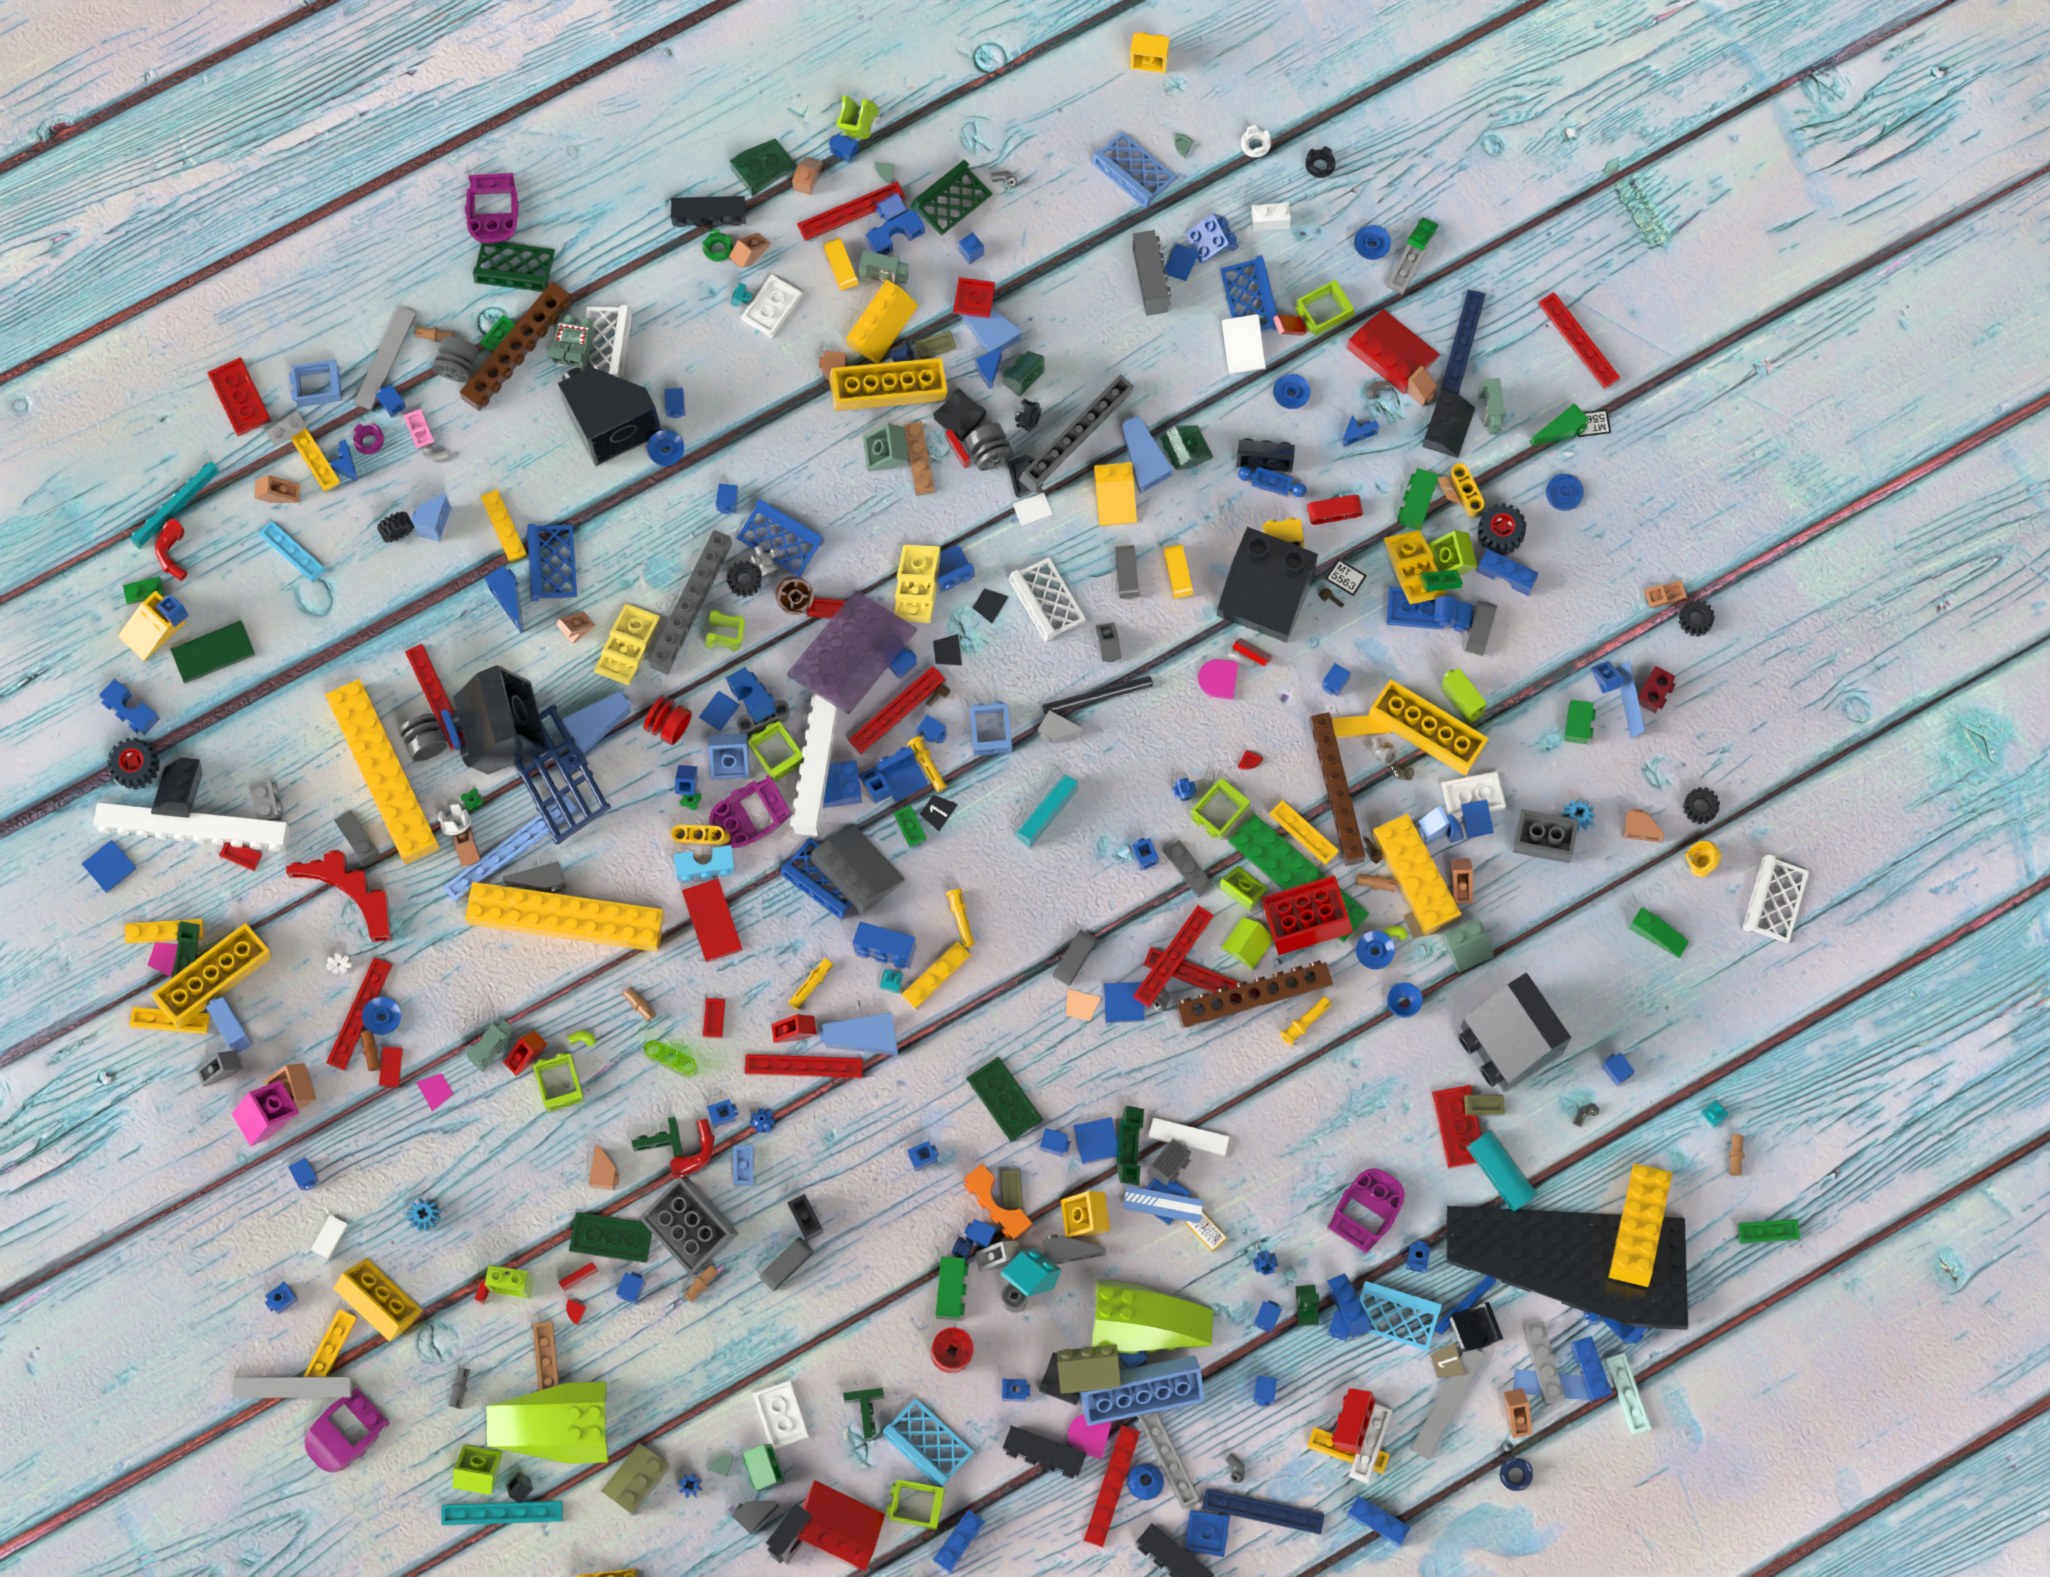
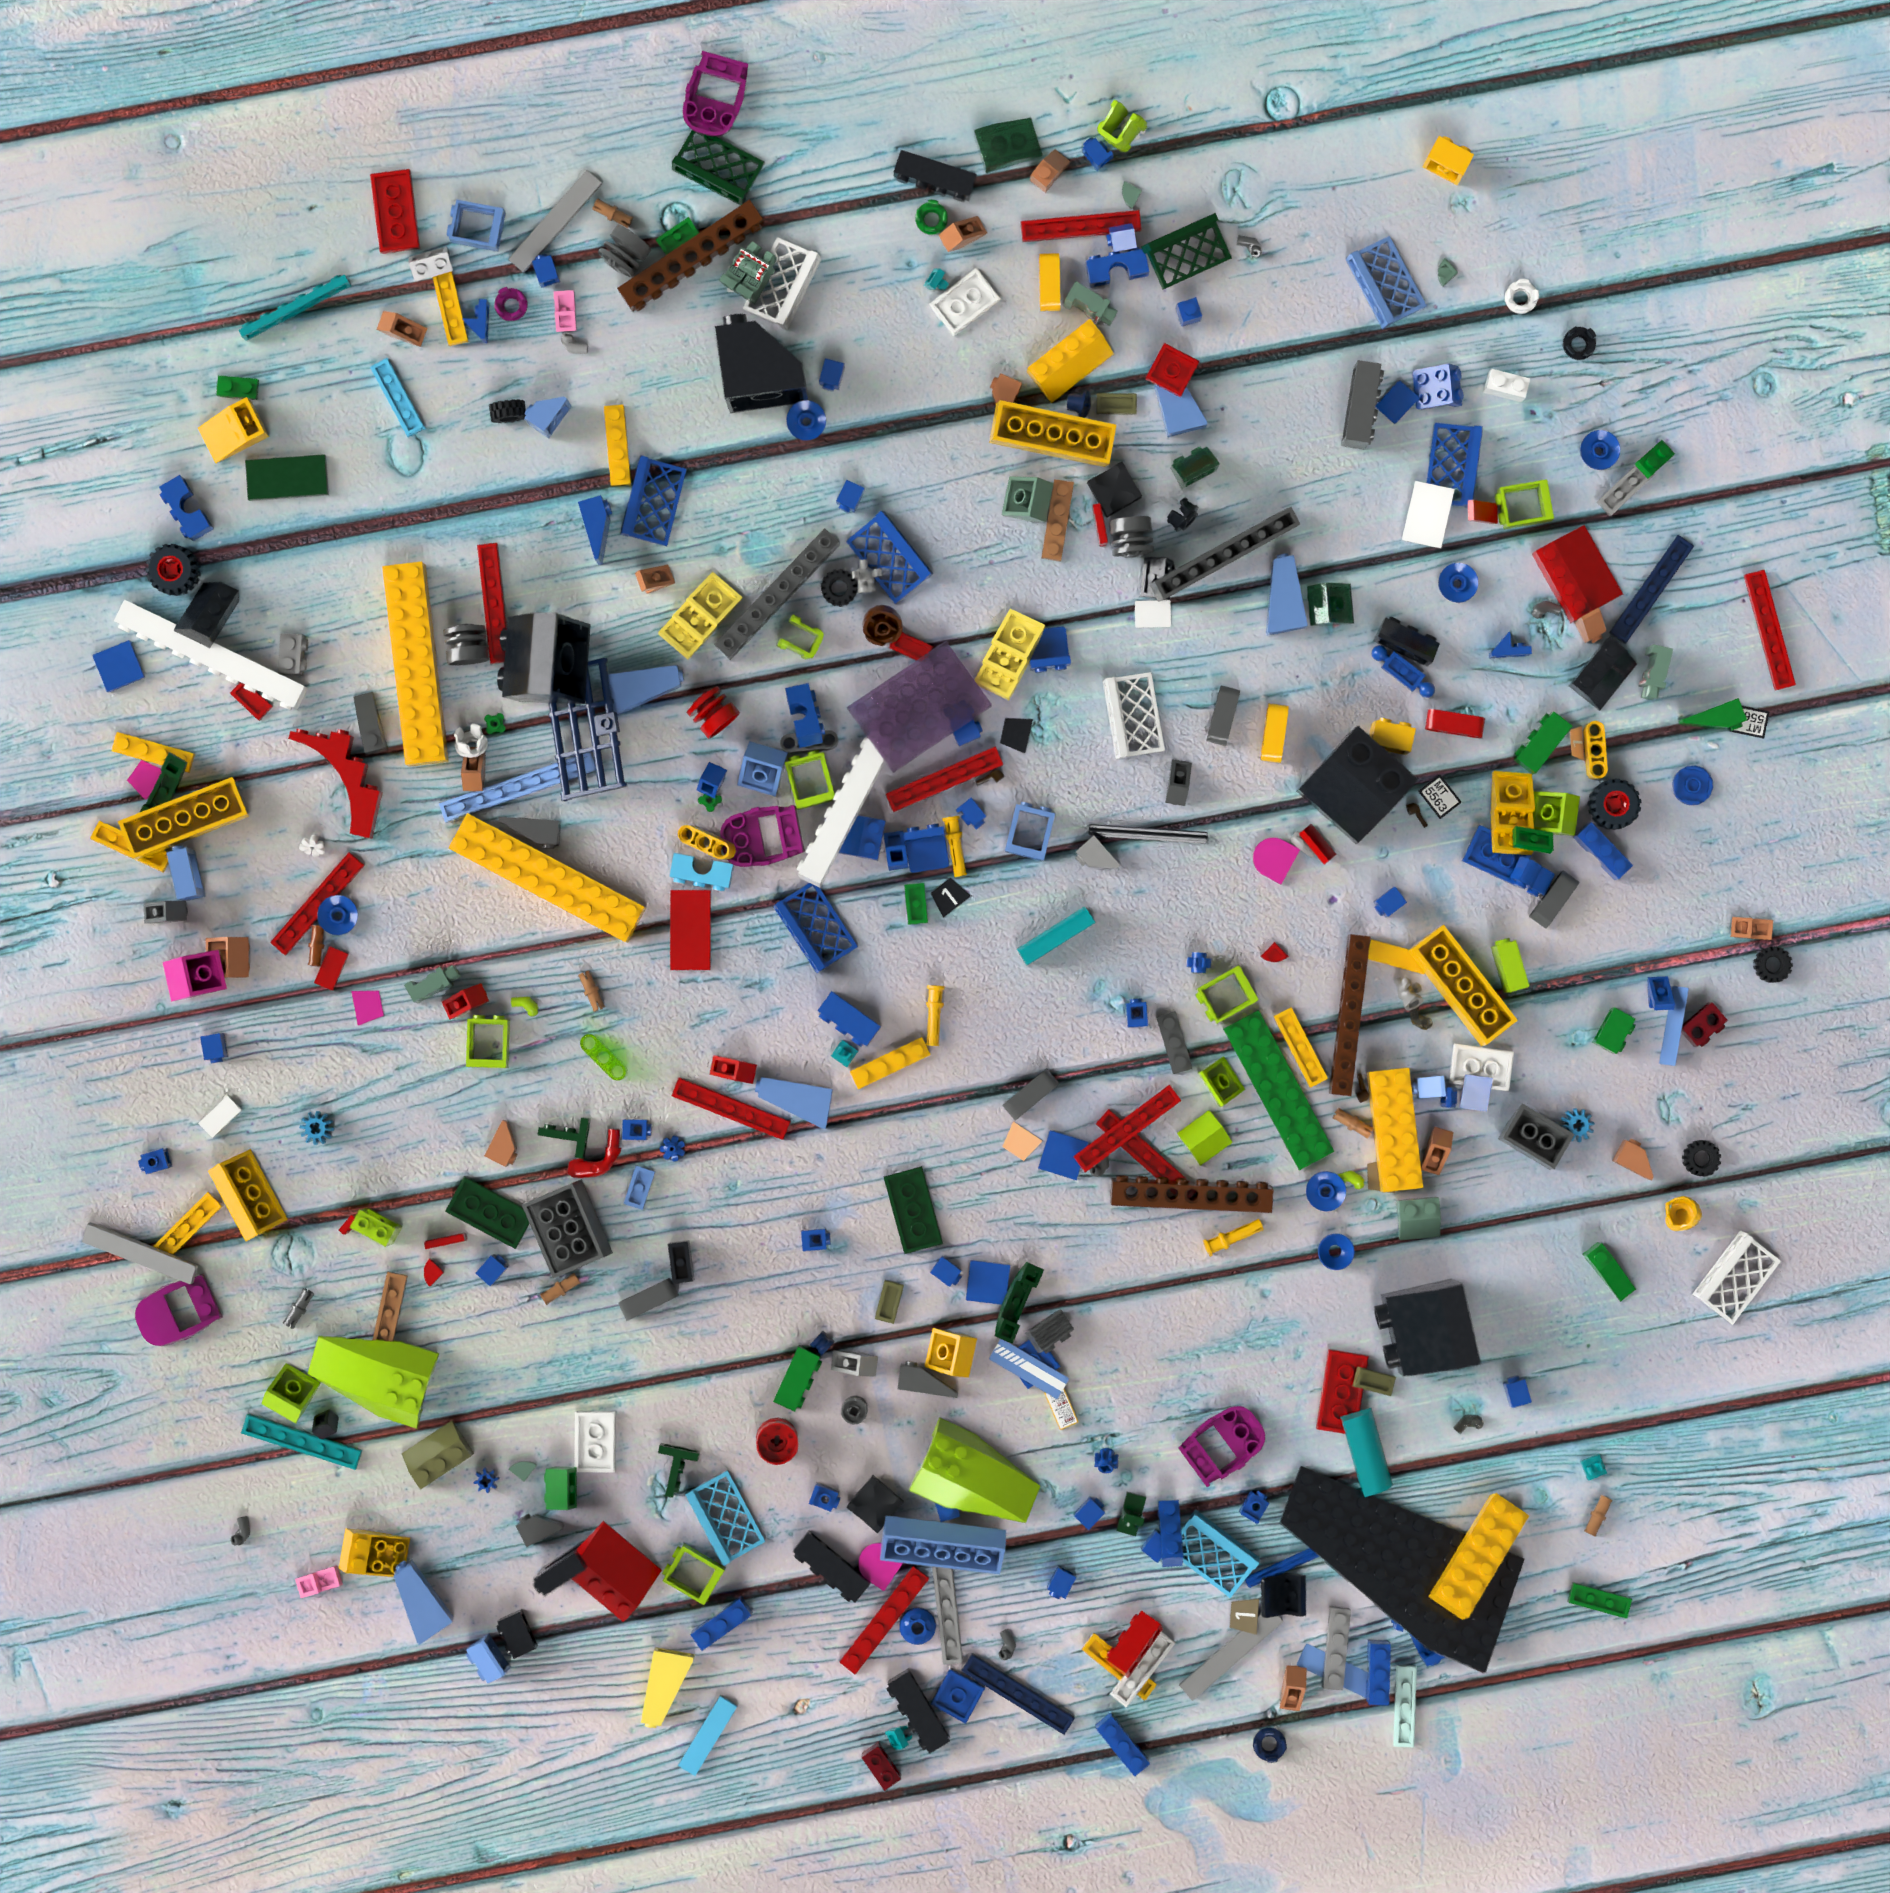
camera: 20 degrees right, 15 degrees up
(171, 533) = (283, 336): red piece -> none
(172, 610) = (256, 425): blue slope -> none
(451, 729) = (497, 652): blue tile -> none
(714, 1018) = (660, 1029): red tile -> none
(719, 711) = (768, 716): blue sticker -> none
(808, 986) = (764, 1029): yellow pin -> none
(856, 868) = (849, 929): dark grey slope -> none
(980, 1233) = (843, 1335): blue brick -> none
(988, 366) = (1161, 447): blue slope -> none
(989, 604) = (1075, 699): black sticker -> none
(1013, 1222) = (879, 1336): orange arch -> none
(1032, 1272) = (878, 1395): teal slope -> none
(1088, 1368) = (899, 1512): olive slope -> none
(1115, 494) = (1240, 629): yellow slope -> none
(1189, 1137) = (1078, 1310): white tile -> none
(1306, 915) = (1271, 1134): red slope -> none

